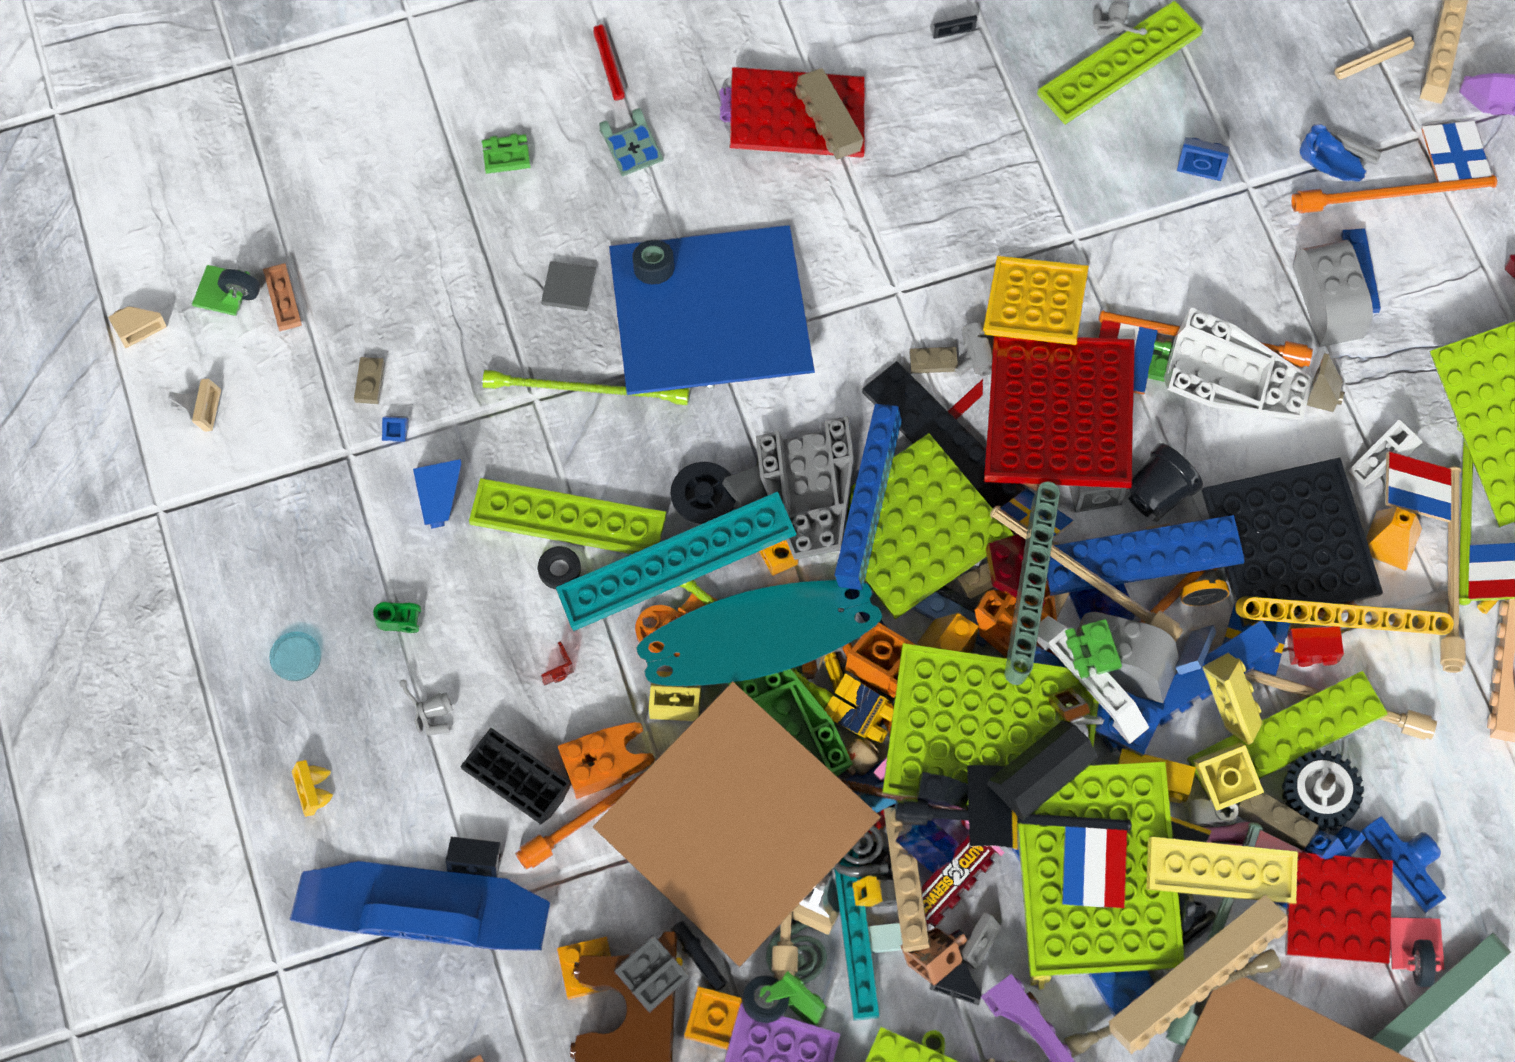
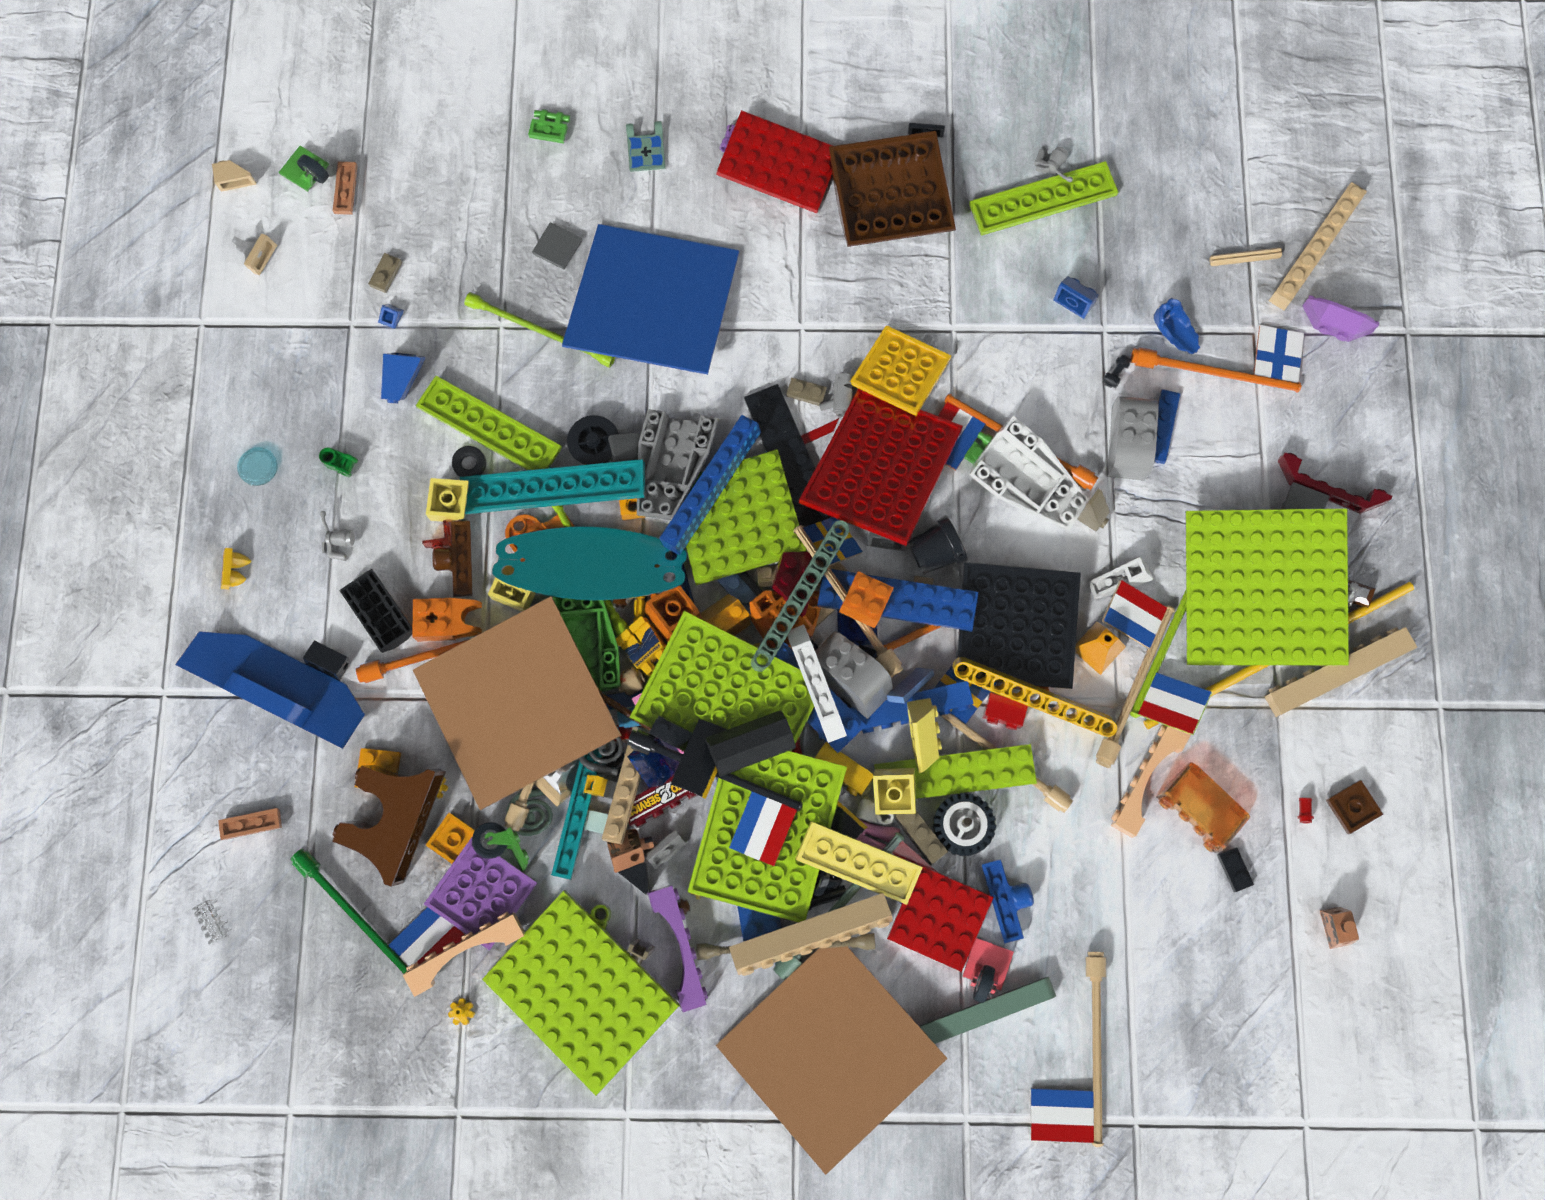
camera: 20 degrees right, 10 degrees up
(554, 616) = (446, 499): none -> light yellow slope
(590, 683) = (457, 558): none -> reddish brown plate
(609, 62) = (653, 77): red axle -> none
(651, 973) = (406, 797): dark grey slope -> none
(653, 262) = (623, 247): black wheel -> none
(692, 947) = (457, 782): black pin -> none
(829, 114) = (799, 170): dark tan brick -> none
(942, 102) = (891, 189): none -> reddish brown slope
(1073, 709) = (789, 706): reddish brown piece -> none
(1100, 647) = (828, 666): bright green plate -> none
(1110, 563) = (866, 599): none -> orange brick
(1204, 593) = (933, 642): tile -> none
(1281, 236) = (1113, 379): none -> black bar
(1342, 844) = (960, 872): blue slope -> none
(1359, 149) = (1201, 327): light grey axle -> none

